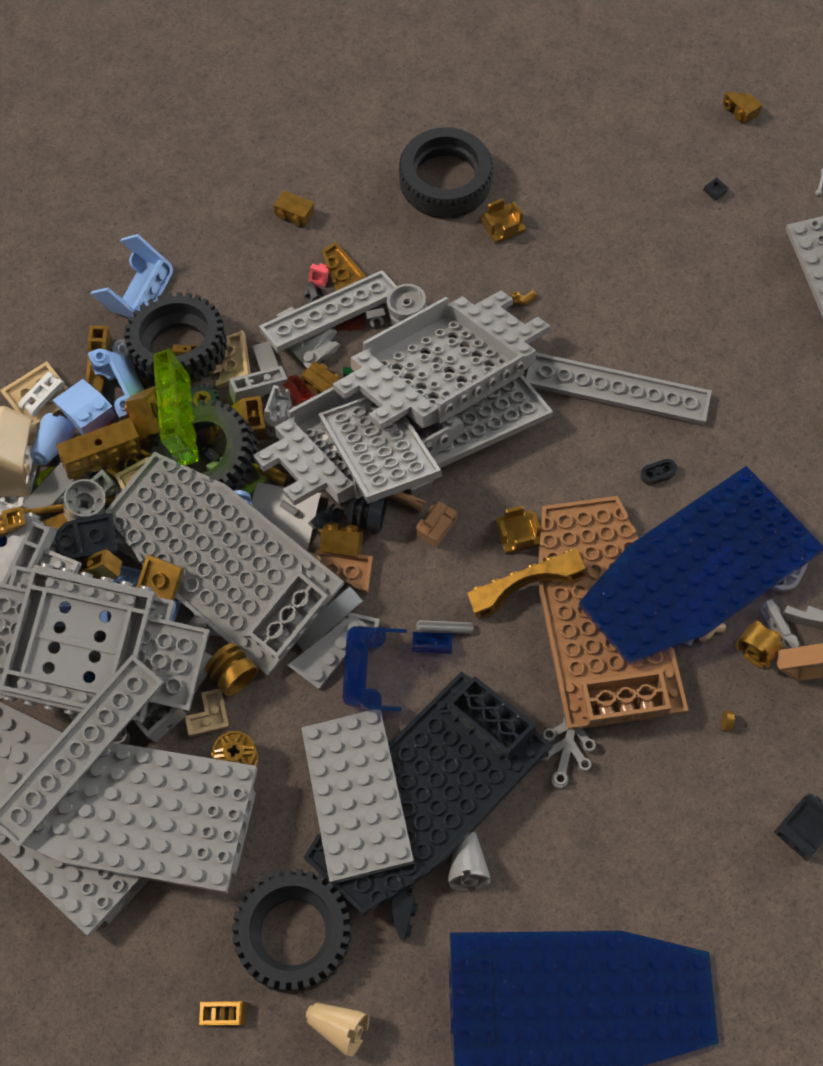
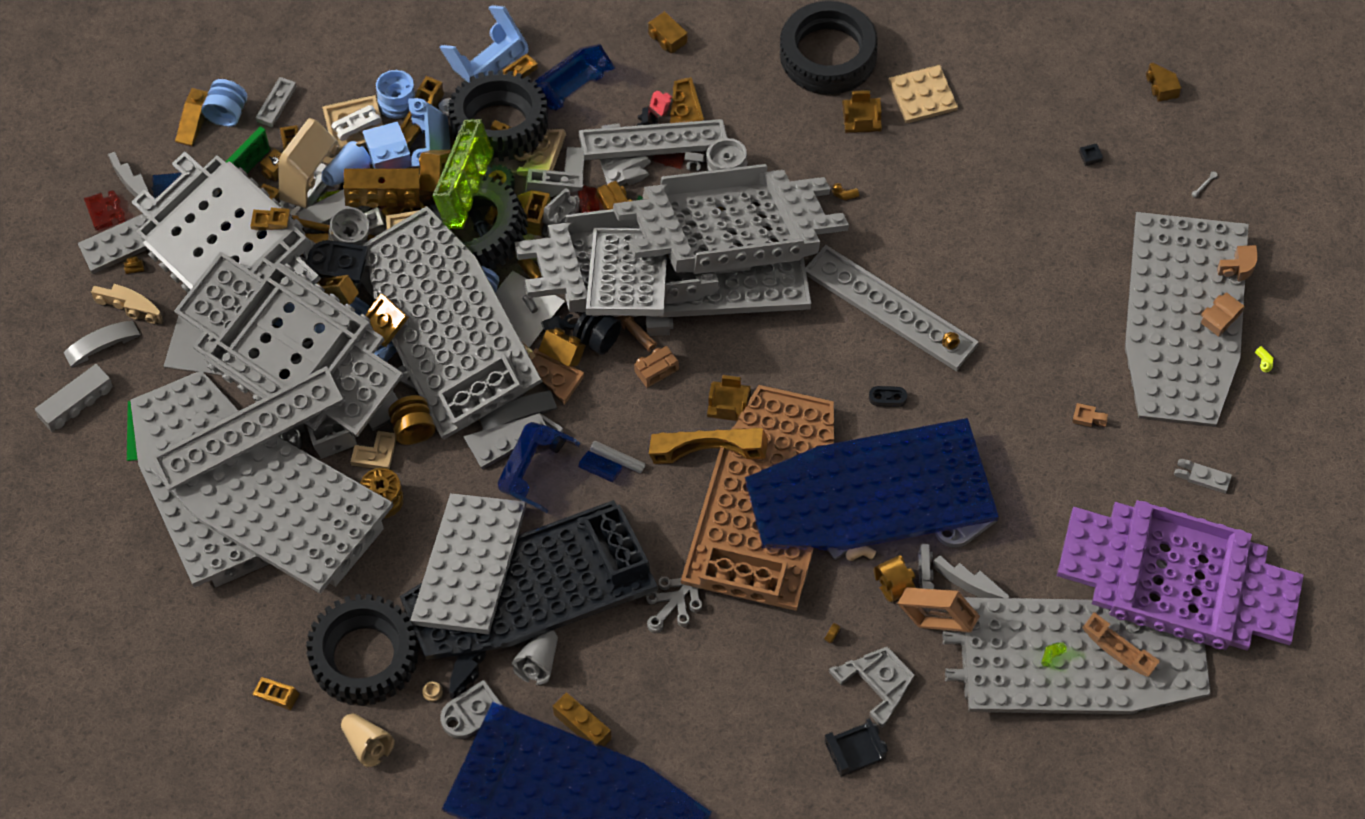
camera: 25 degrees right, 5 degrees down
(67, 353) = (393, 93): none -> light blue wheel
(174, 284) = (524, 66): none -> pearl gold plate
(225, 273) = (572, 73): none -> clear blue windscreen
(379, 942) = (432, 691): none -> tan plate
(428, 947) = (468, 710): none -> light grey plate
(542, 913) = (581, 720): none -> pearl gold brick
(545, 186) = (923, 94): none -> tan plate
(689, 398) = (950, 340): none -> pearl gold plate
(795, 742) = (884, 674): none -> light grey wing

